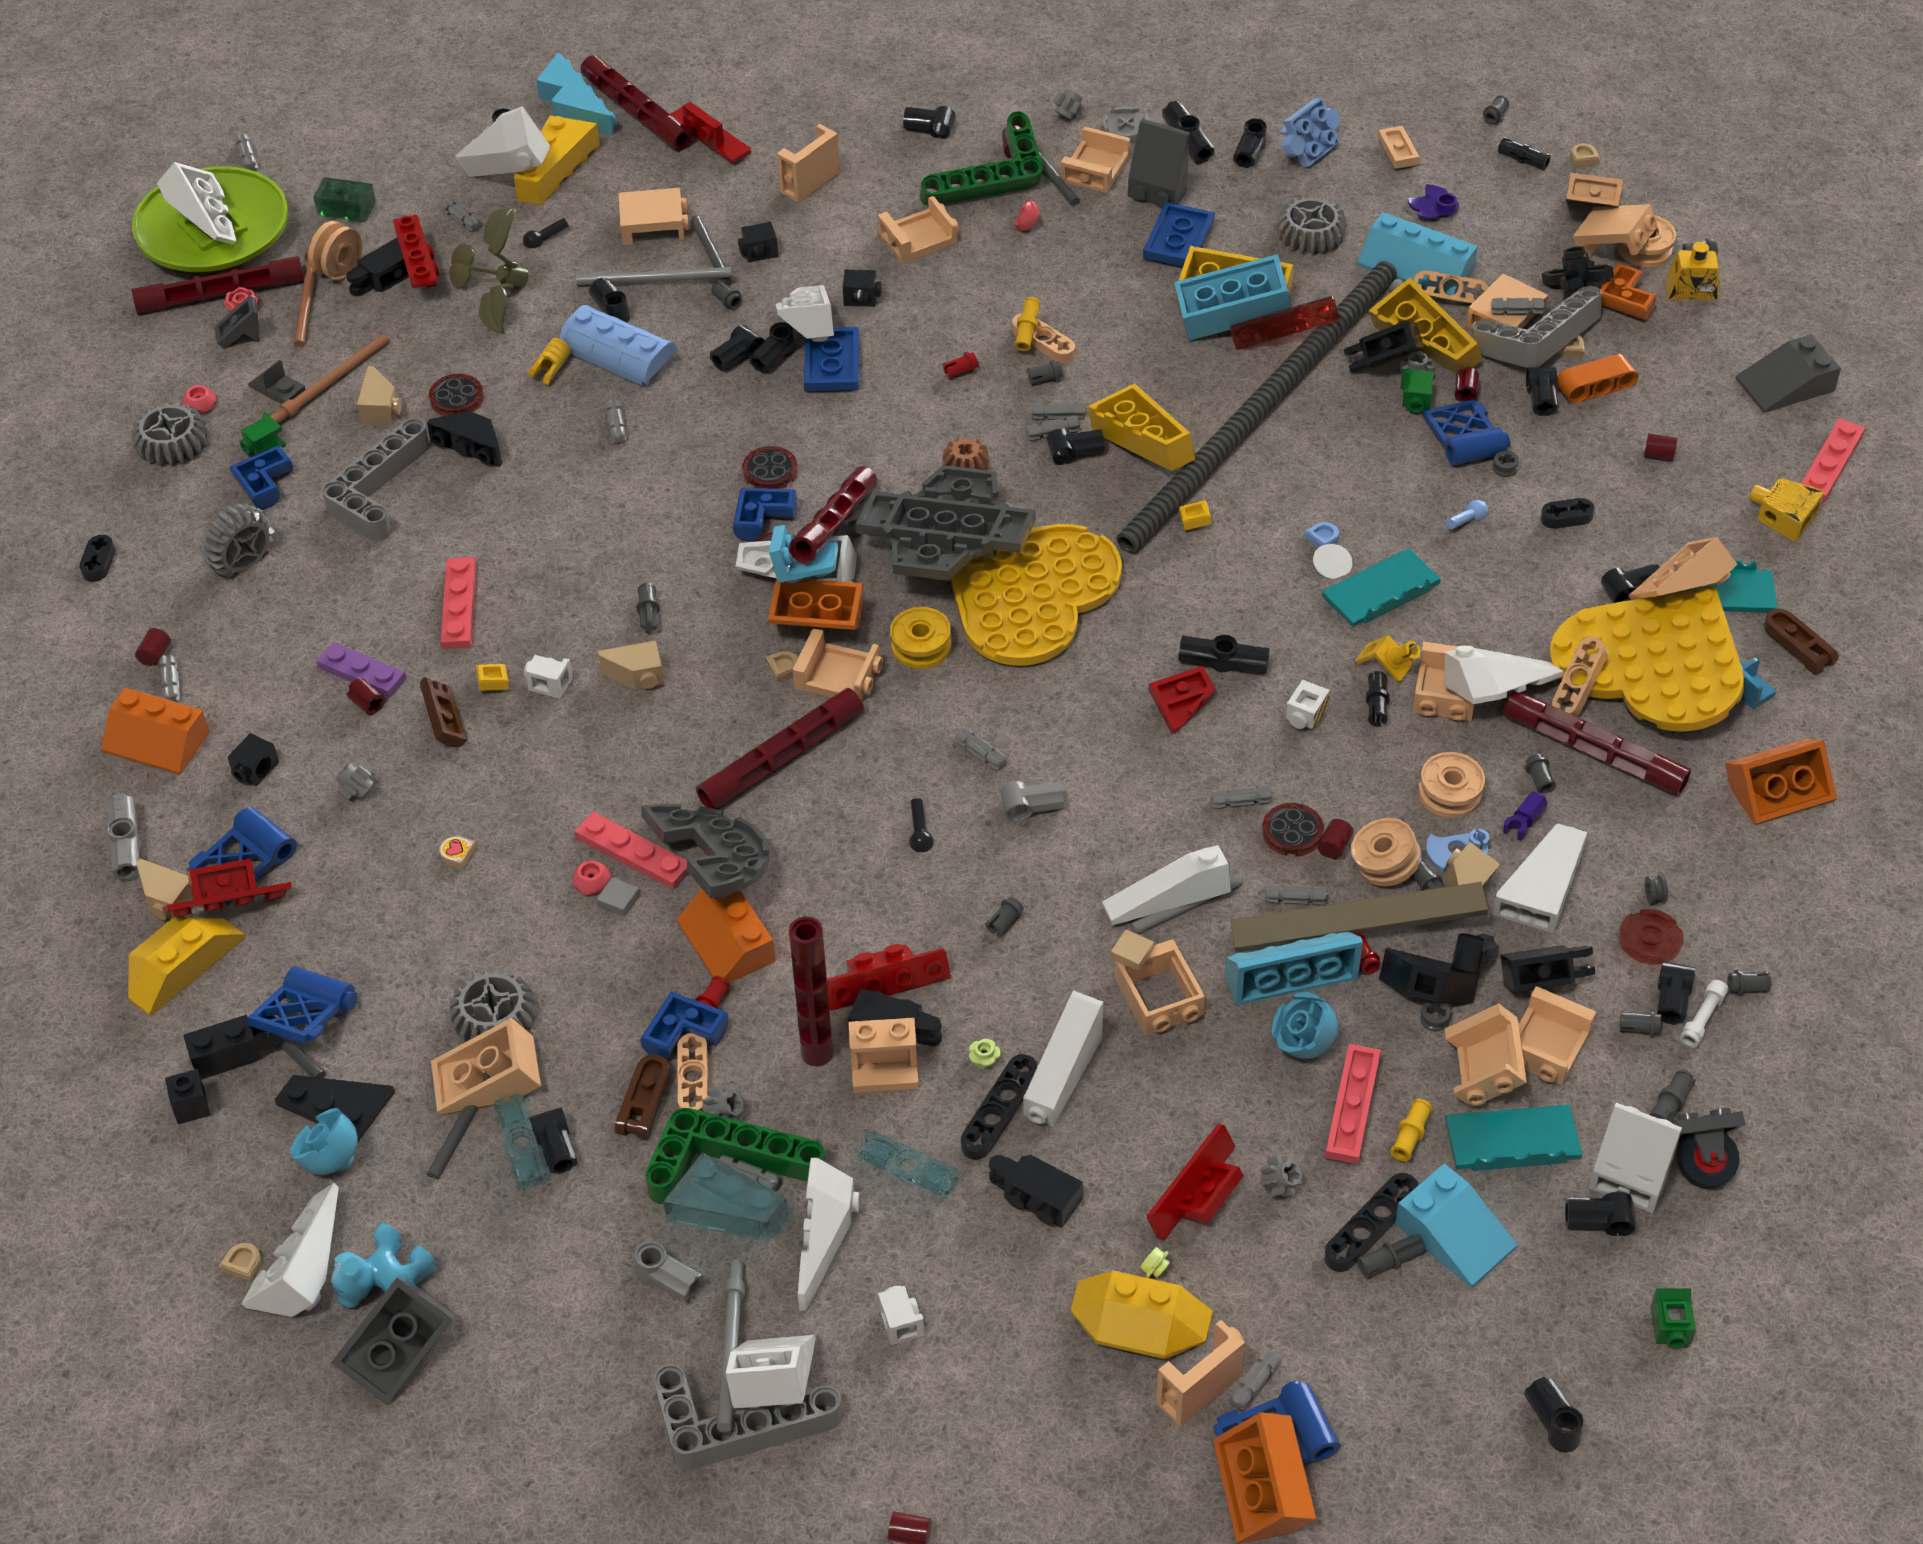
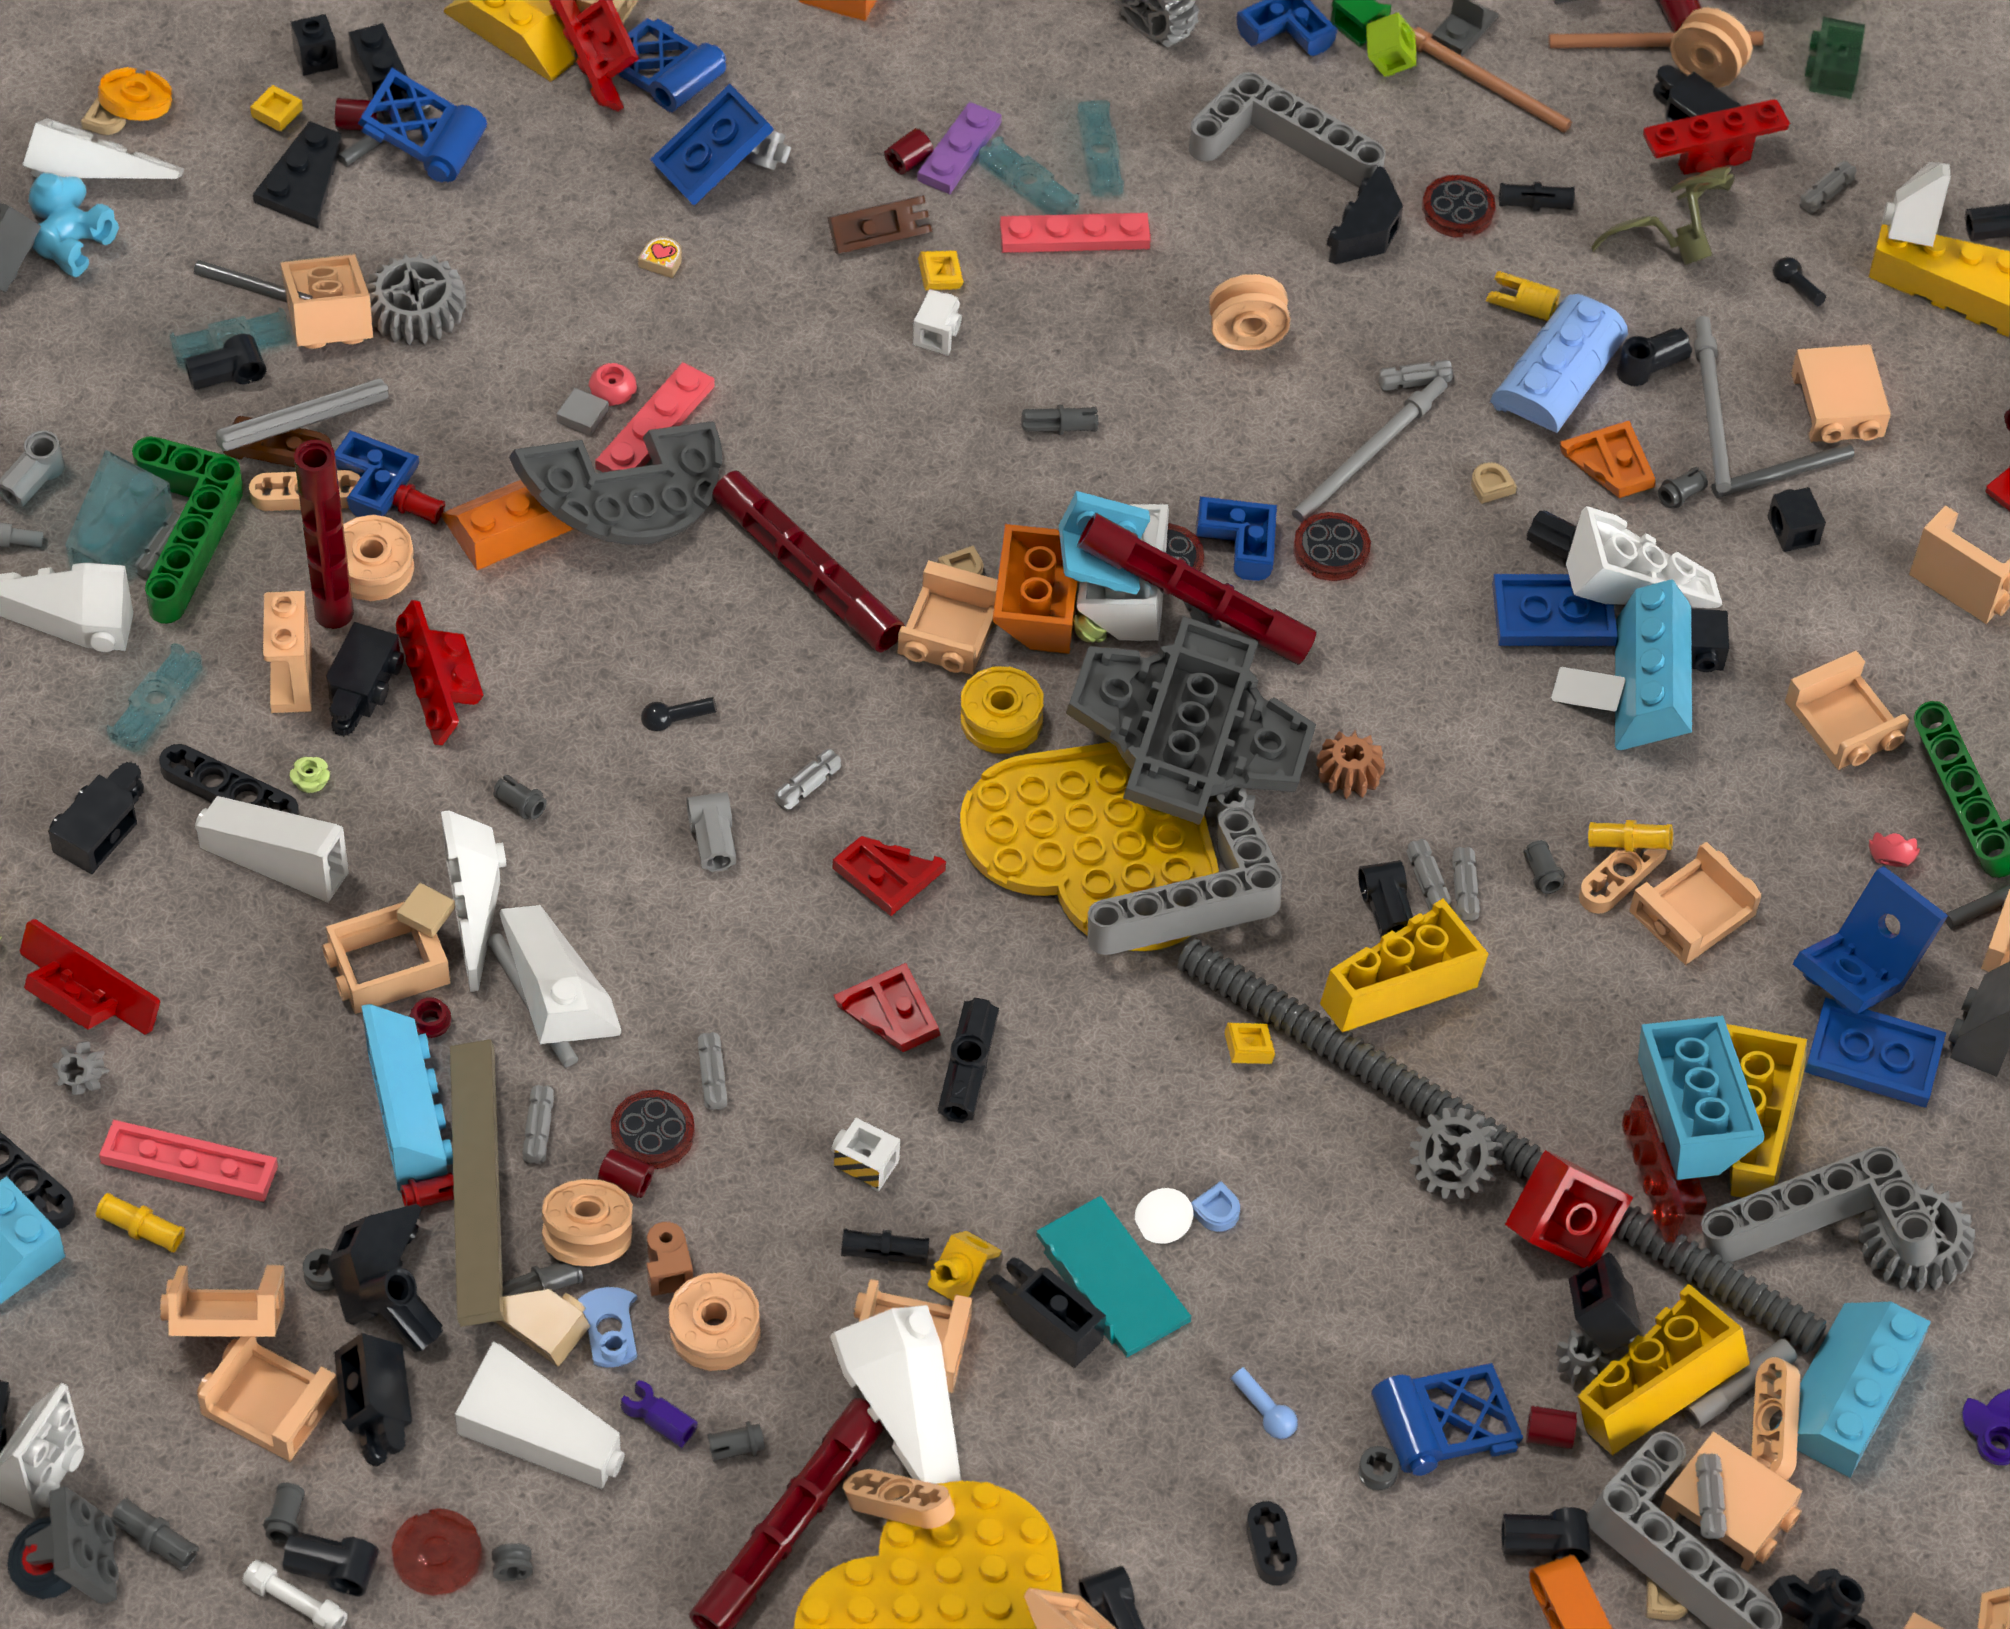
camera: 85 degrees right, 5 degrees up
(223, 1234) = (135, 94): none -> light orange tile
(252, 760) = (805, 55): black brick -> none
(255, 1124) = (276, 108): none -> yellow plate
(272, 1064) = (349, 113): none -> dark red piece
(298, 416) = (1391, 44): none -> lime brick
(327, 1145) = (229, 161): medium azure cylinder -> none
(354, 807) = (712, 144): none -> blue plate
(356, 590) = (1097, 129): none -> clear light blue piece
(377, 399) = (1440, 120): tan slope -> none
(387, 640) = (1010, 167): none -> clear light blue piece
(453, 353) = (1536, 196): none -> black pin
(564, 492) = (1249, 312): none -> light nougat wheel
(623, 1073) = (301, 414): none -> light grey axle
(633, 665) = (953, 409): tan slope -> none
(646, 421) = (1414, 407): none -> light grey bar
(701, 325) = (1612, 459): none -> orange wing
(715, 388) = (1492, 482): none -> tan tile
(723, 1102) = (247, 521): light grey gear -> none
(741, 344) = (1563, 495): black piece -> none
(768, 1021) = (378, 557): none -> light nougat wheel
(891, 306) = (1656, 665): none -> medium azure slope
(900, 344) = (1588, 689): none -> white sticker
(961, 365) = (1557, 770): red pin -> none
(1066, 701) = (886, 872): none -> red wing
(1071, 305) = (1697, 904): none -> light nougat panel
(1084, 497) = (1196, 905): none -> light grey beam
(1092, 937) = (475, 881): none -> white wedge
(1111, 228) = (1864, 958): none -> blue bracket
(1210, 955) = (431, 1008): none -> dark red plate
(1280, 412) = (1471, 1144): none -> light grey gear
(1303, 249) = (1825, 1206): none -> light grey beam
(1305, 1026) = (296, 1107): medium azure cylinder -> none
(1318, 363) = (1568, 1210): none -> red slope
(1406, 807) = (668, 1258): none -> nougat leg
(1416, 390) = (1525, 1353): green window -> none
(1423, 605) = (1051, 1310): none -> black hinge
(1513, 1138) = (120, 1345): teal piece -> none

